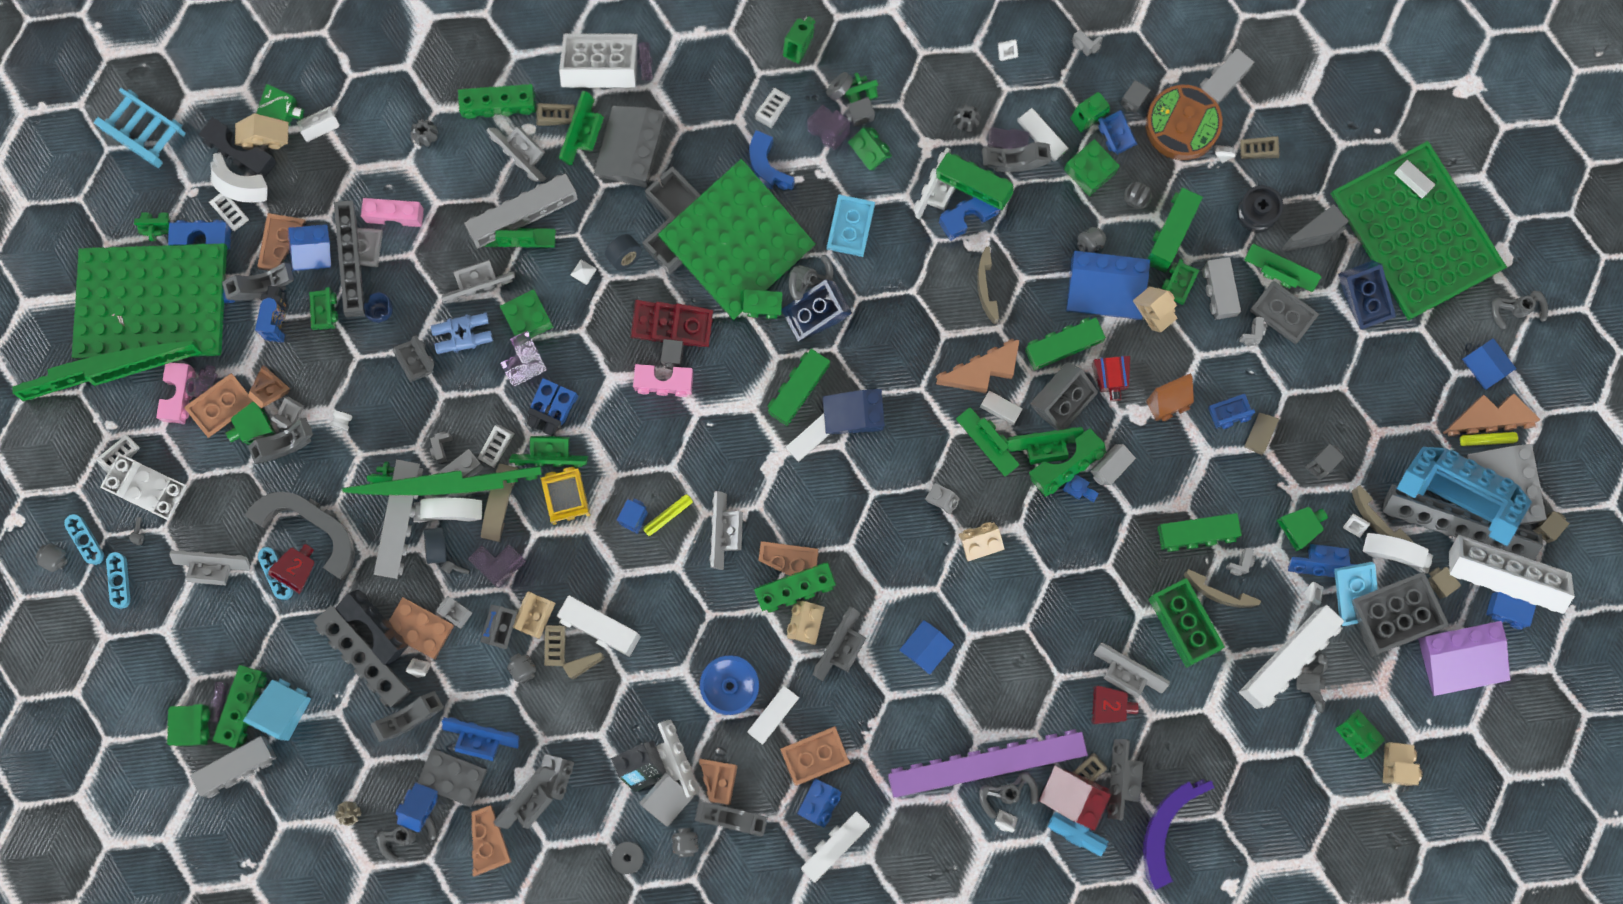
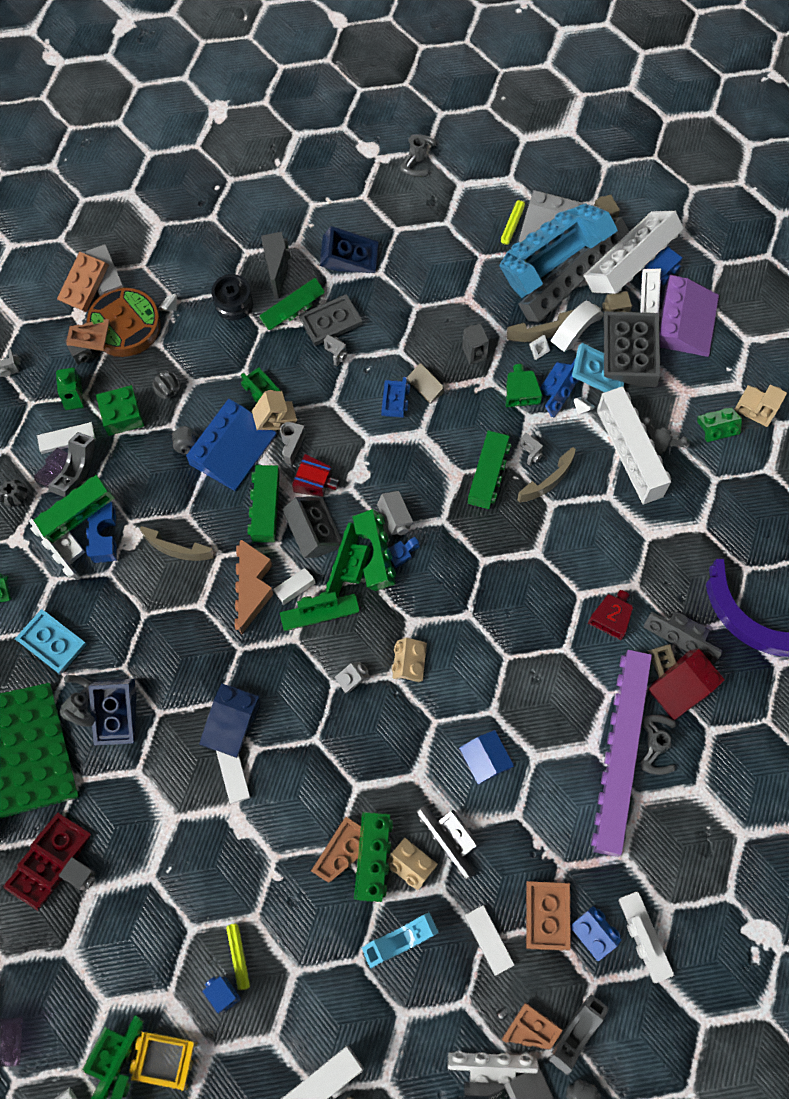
camera: 65 degrees left, 10 degrees down
(551, 406) = (62, 1031): blue hips -> none
(678, 384) = (92, 914): bright pink arch -> none
(724, 671) = (458, 968): blue dish -> none
(725, 530) = (283, 902): light grey bracket -> none
(738, 640) = (400, 940): none -> medium azure arch
(762, 302) = (78, 758): green bracket -> none
(799, 387) = (178, 762): green brick -> none
(1006, 821) = (683, 758): white slope -> none
(1077, 834) = (719, 698): dark azure piece -> none
(1117, 132) = (101, 375): blue bracket -> none
(1129, 674) = (589, 586): light grey bracket -> none
(1139, 339) = (292, 441): none -> light grey plate
(1149, 100) = (88, 335): none -> nougat wing
(1171, 398) = (360, 437): dark orange slope -> none
(1174, 229) = (212, 368): green brick -> none
(1186, 623) = (565, 516): green brick -> none
(1204, 63) = (82, 282): none -> nougat plate
(1221, 288) = (284, 357): light grey brick -> none
(1268, 154) = (185, 279): dark tan slope -> none
(1414, 178) = (272, 176): white slope -> none
(1425, 244) = (315, 190): green plate -> none
(1472, 610) = (650, 290): none -> white tile
(1488, 417) = (495, 212): nougat slope -> none
(1489, 364) = (451, 195): blue slope -> none

